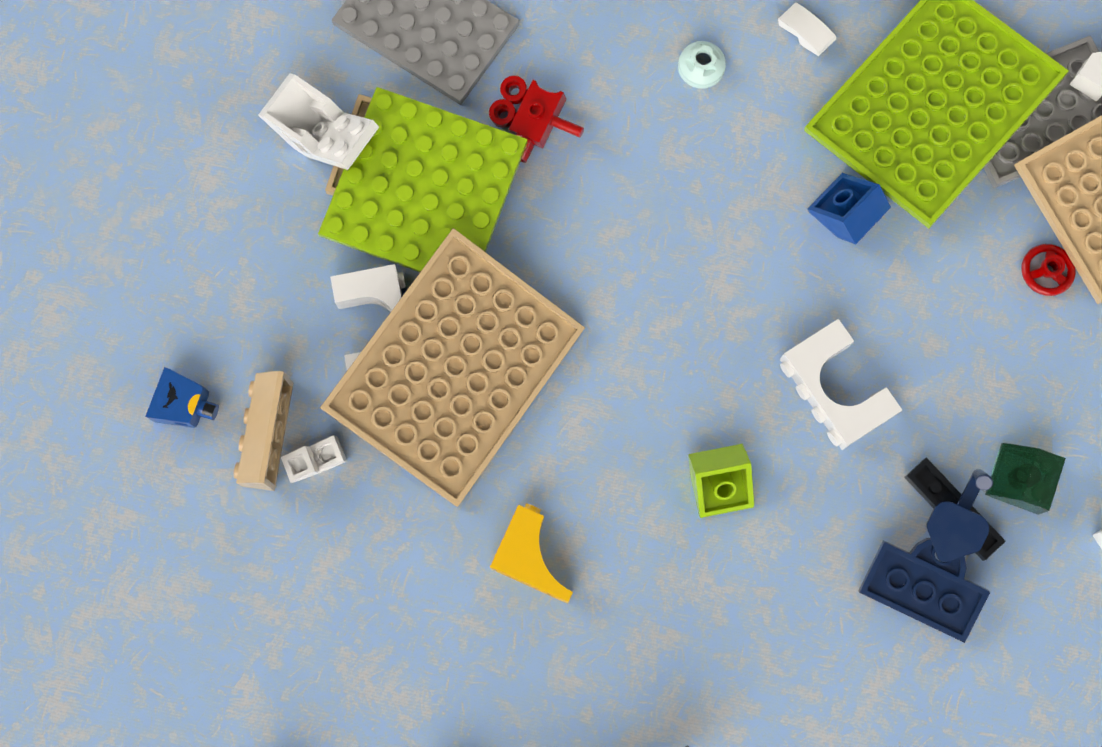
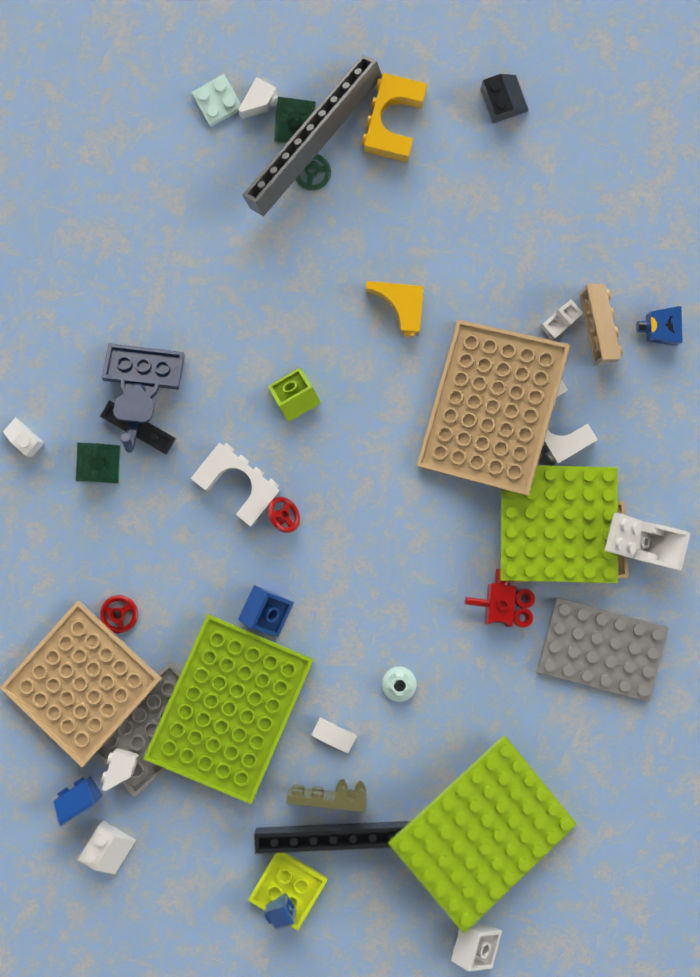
camera: 165 degrees right, 10 degrees up
(789, 321) = (282, 516): none -> red piece

